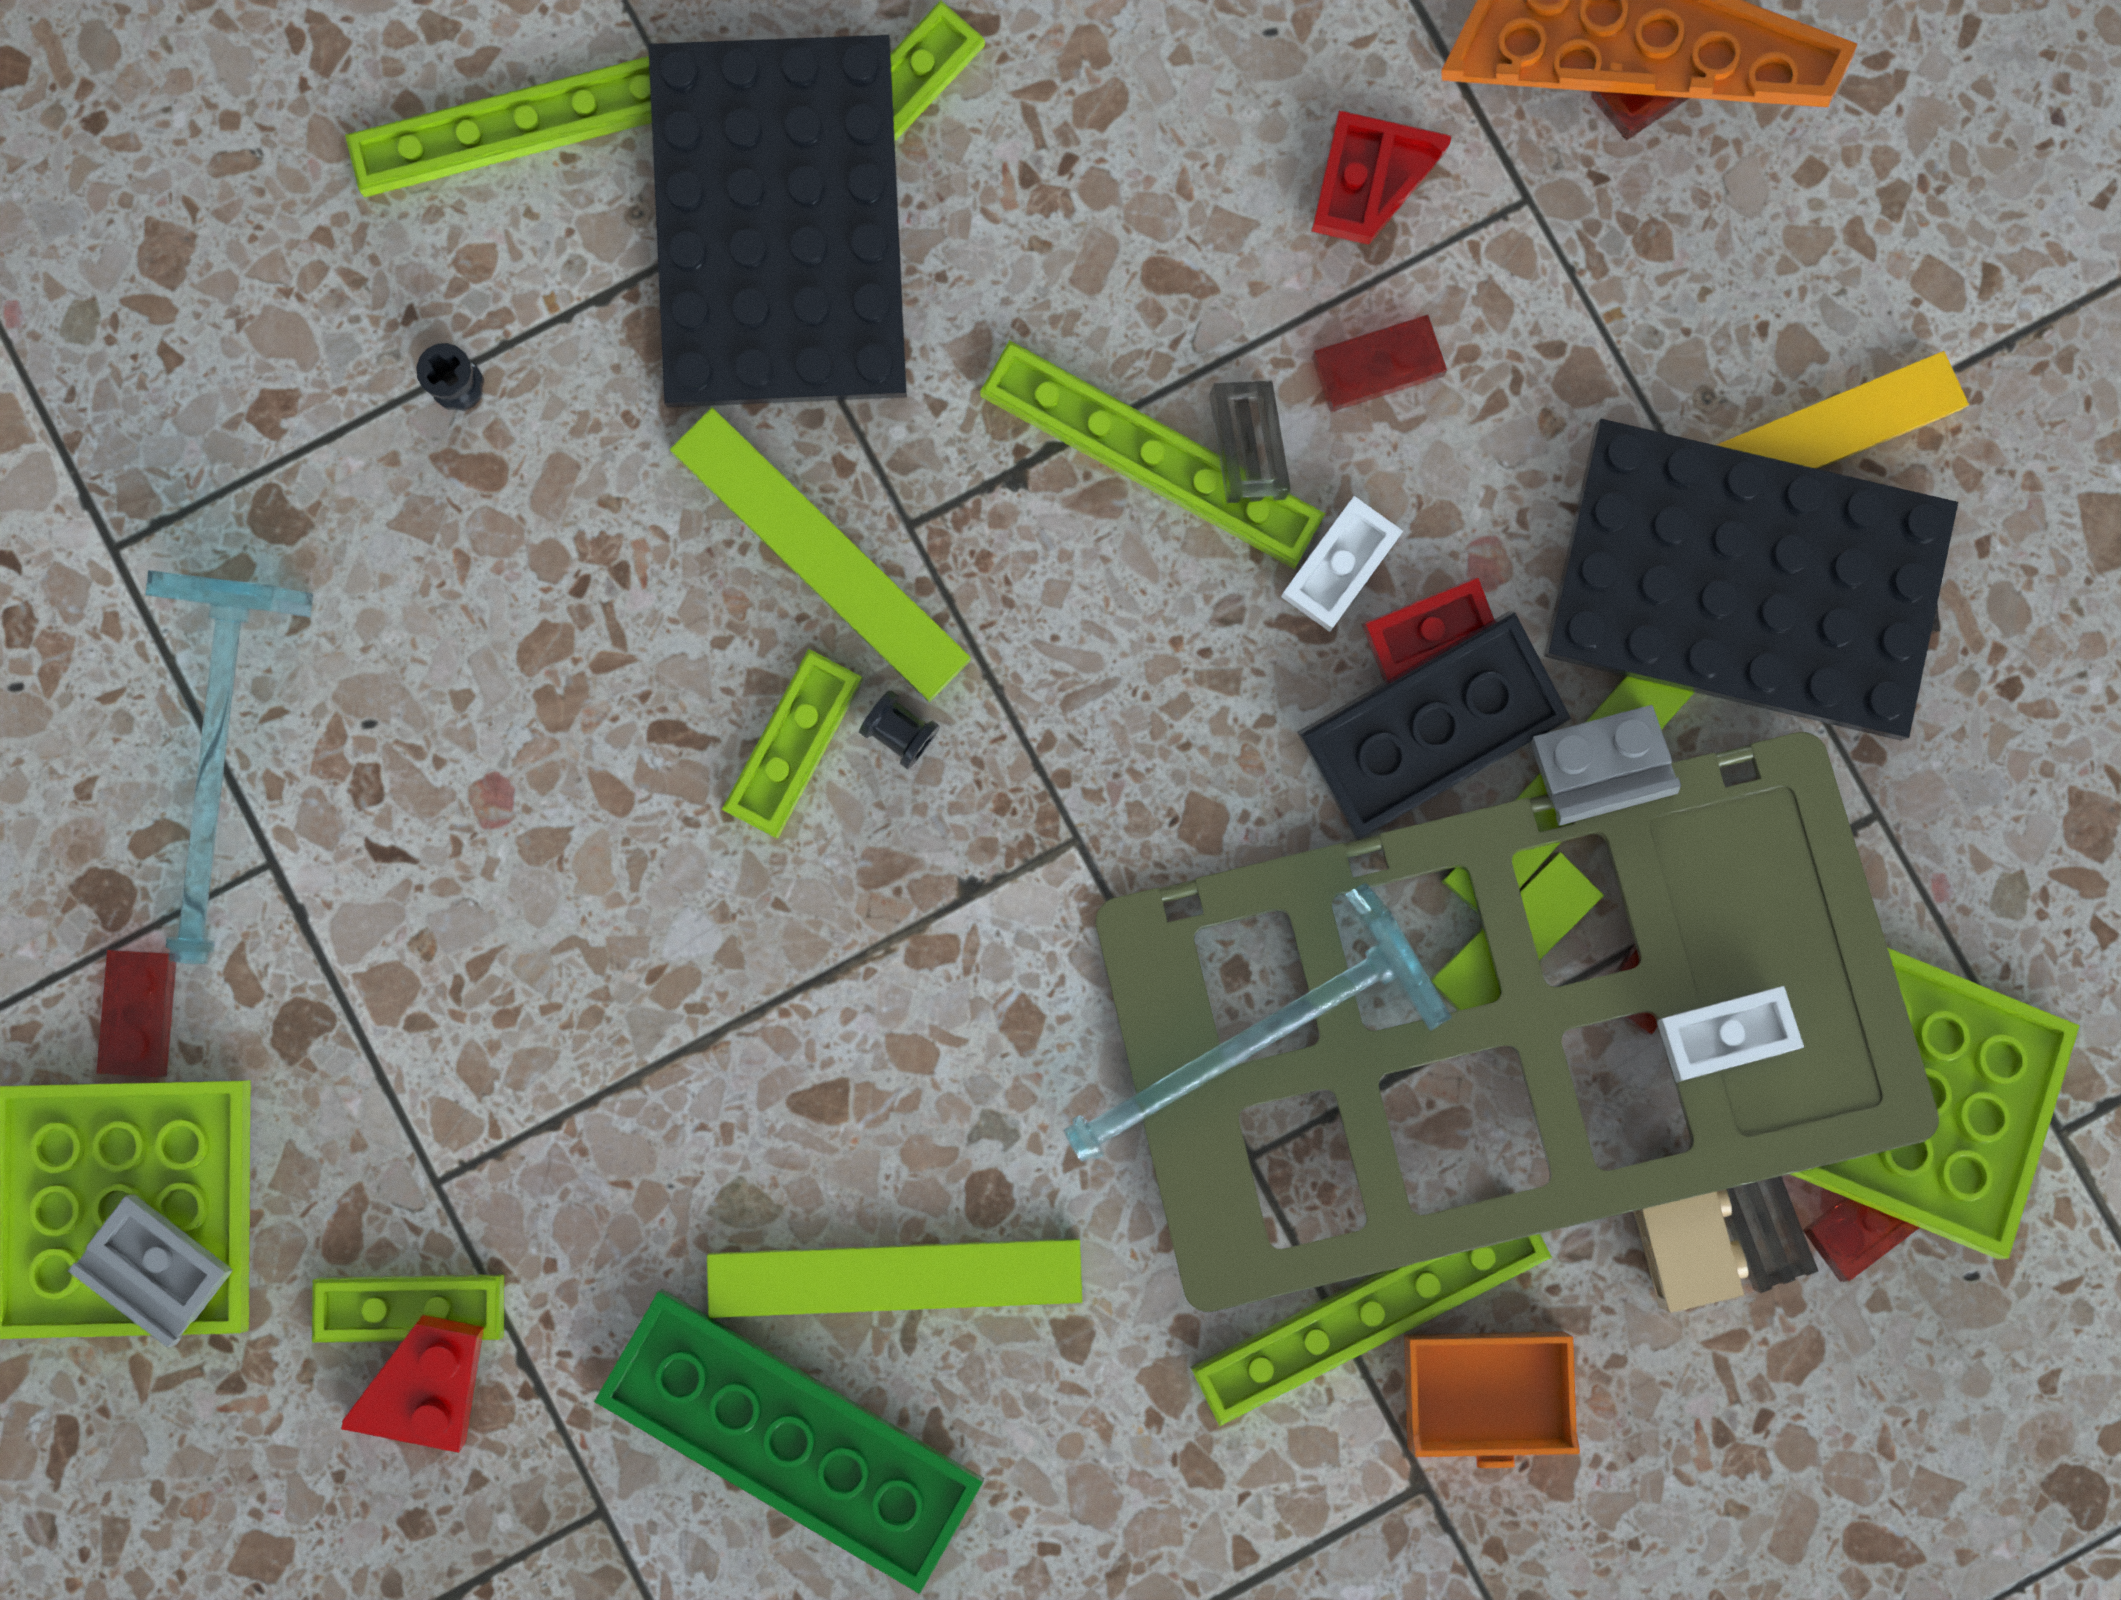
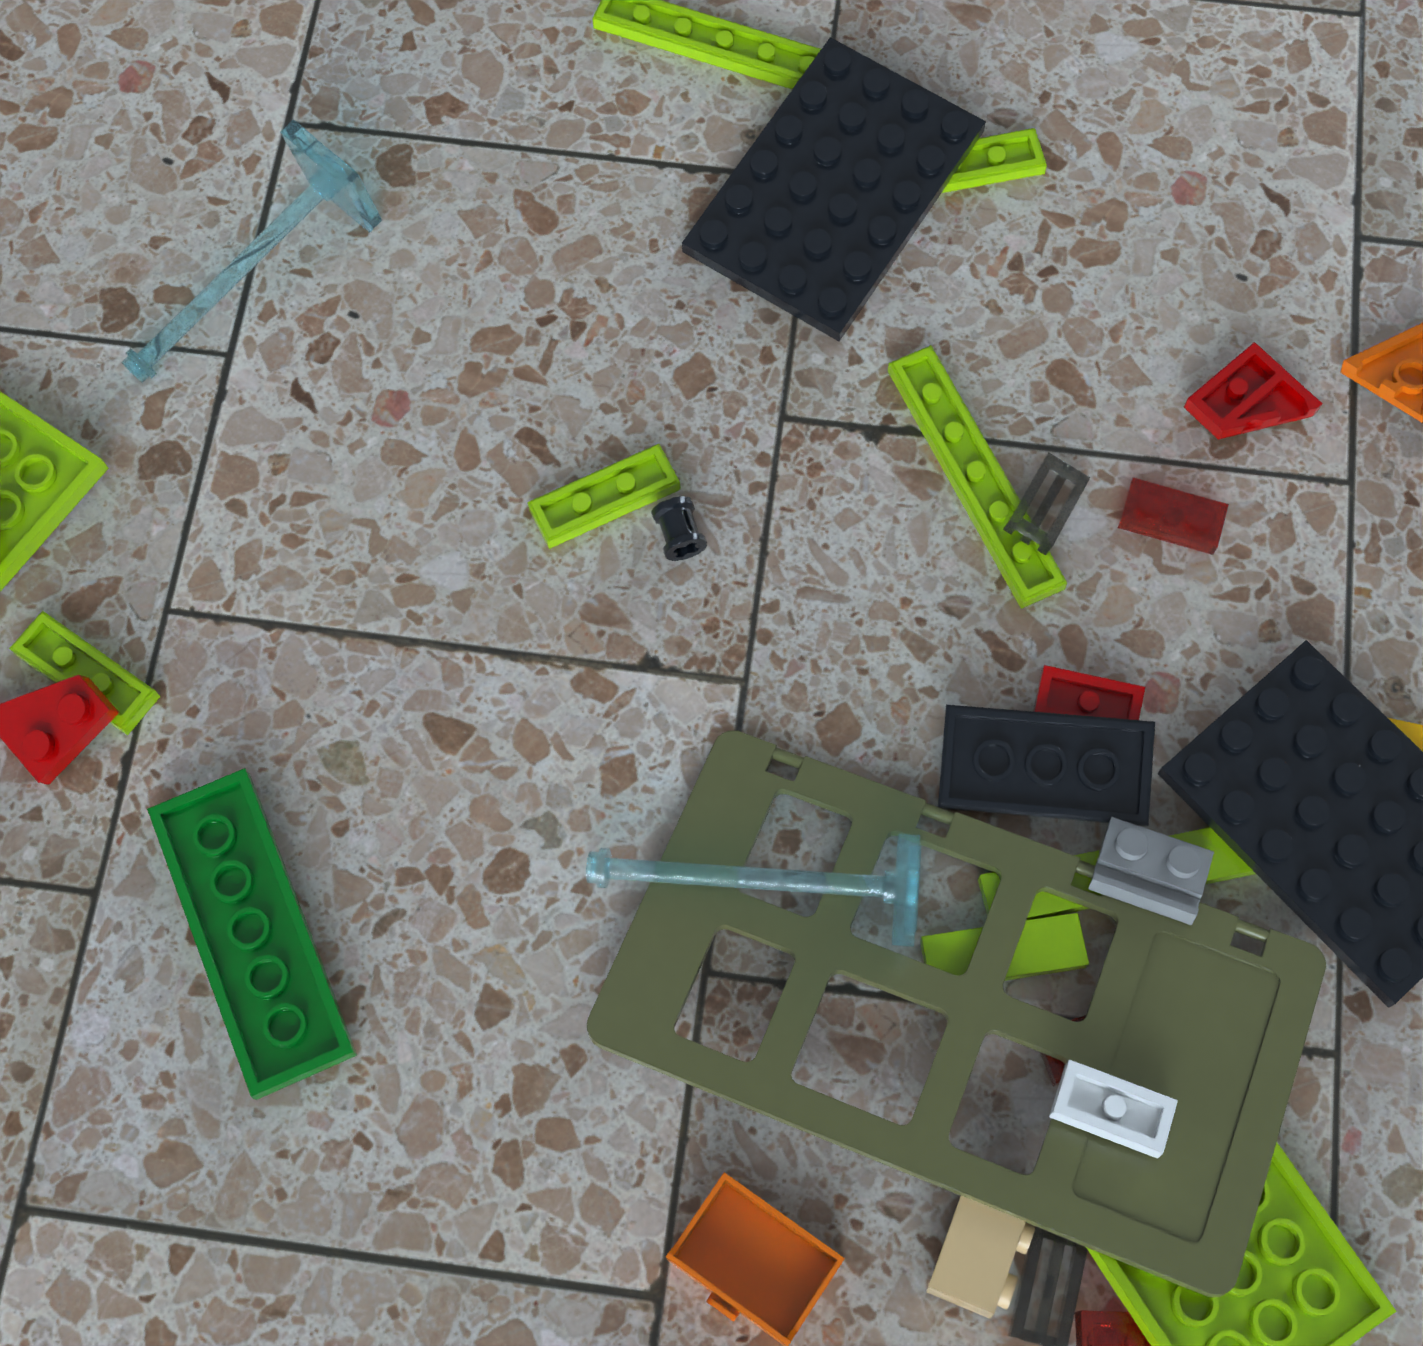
camera: 40 degrees right, 15 degrees down
(136, 1014) = (76, 384): clear red plate -> none
(436, 363) = (562, 141): black bush -> none
(820, 554) = (711, 398): lime tile -> none
(894, 1278) = (406, 877): lime tile -> none
(1341, 563) = (1055, 621): white plate -> none
(1354, 1323) = (704, 1140): lime tile -> none

